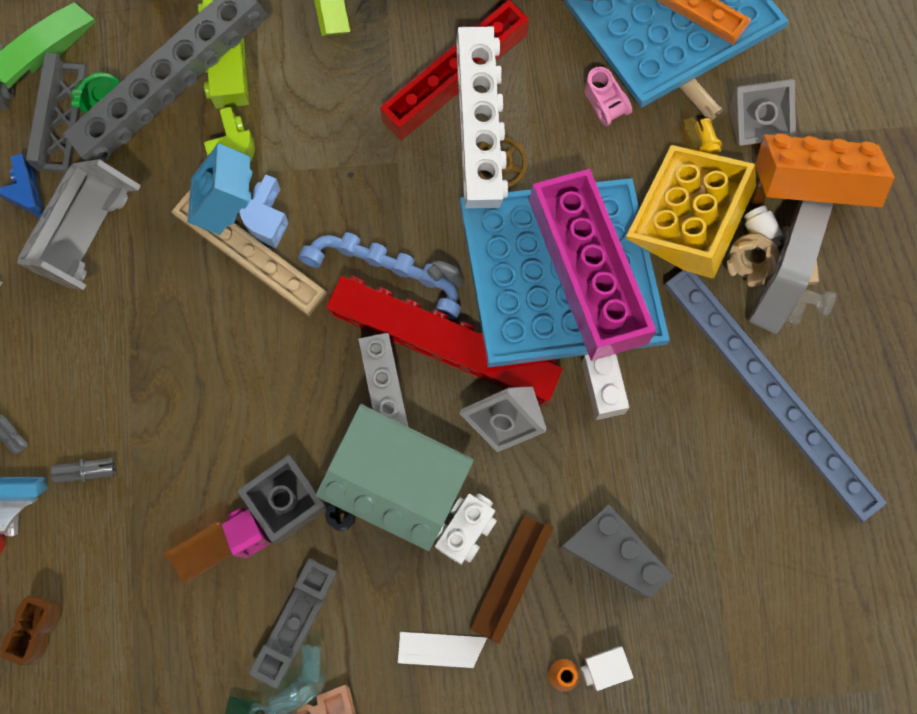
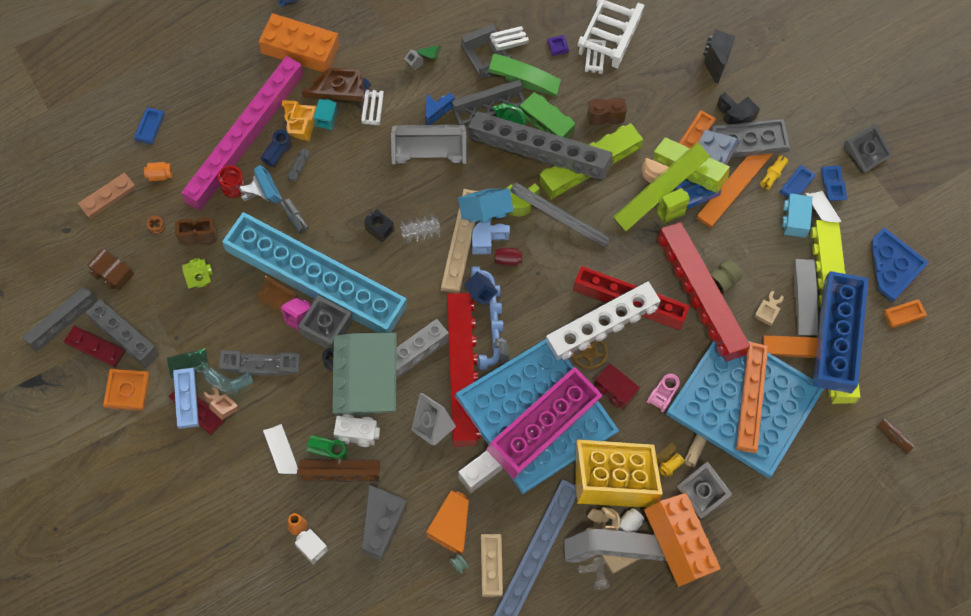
camera: 60 degrees right, 10 degrees down
(102, 657) = (197, 273): none -> lime brick
(123, 46) = (547, 117): none -> bright green brick
(178, 358) = (381, 232): none -> black brick
(191, 484) = (314, 273): none -> medium azure brick
(201, 299) = (420, 228): none -> clear piece
(283, 101) = (560, 214): none -> dark grey axle
(309, 200) = (508, 256): none -> dark red brick
(341, 257) = (481, 288): none -> dark blue brick
(469, 584) = (326, 447): none -> green piece
(569, 151) = (616, 387): none -> dark red brick
(660, 457) = (450, 523): none -> orange slope
(720, 474) = (459, 563): none -> sand green bush
(738, 432) = (491, 565): none -> tan tile

